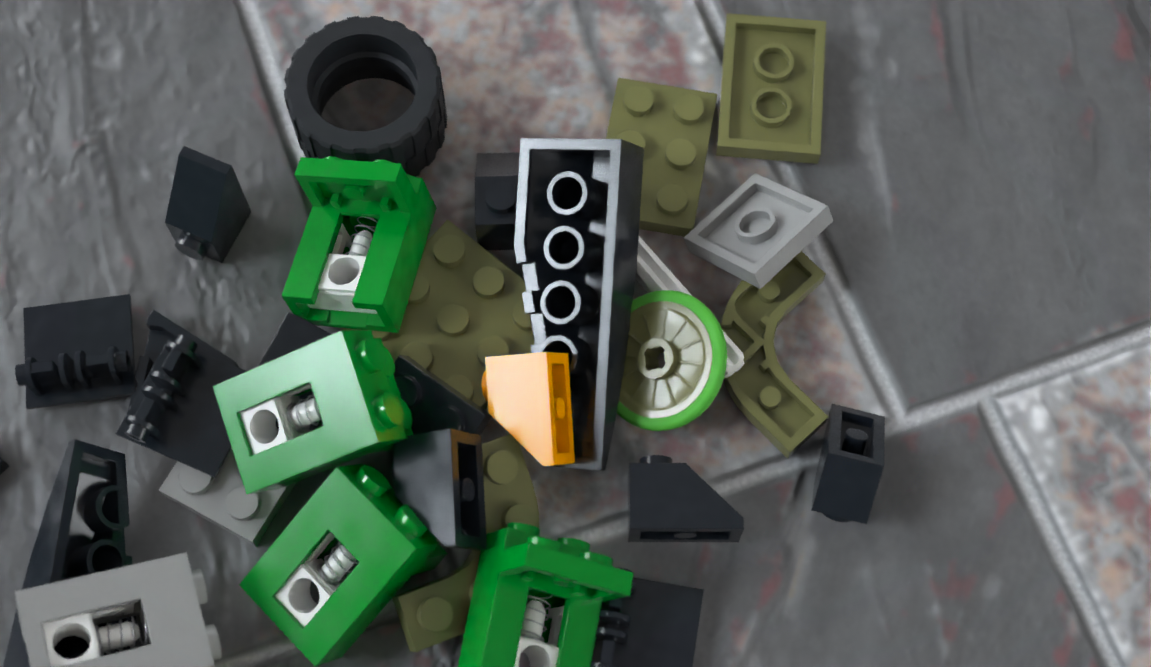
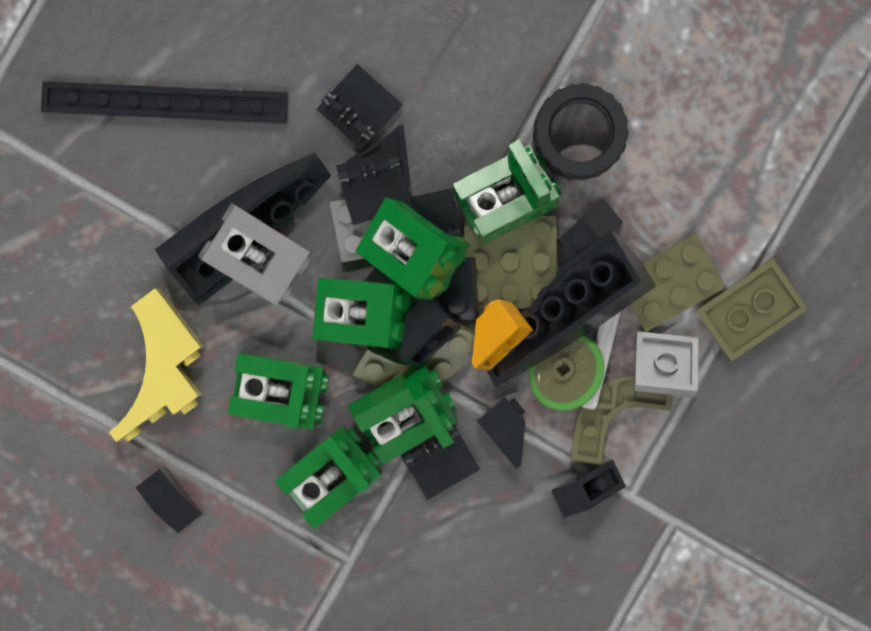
camera: 55 degrees right, 20 degrees up
(205, 206) = (465, 106): black slope -> none

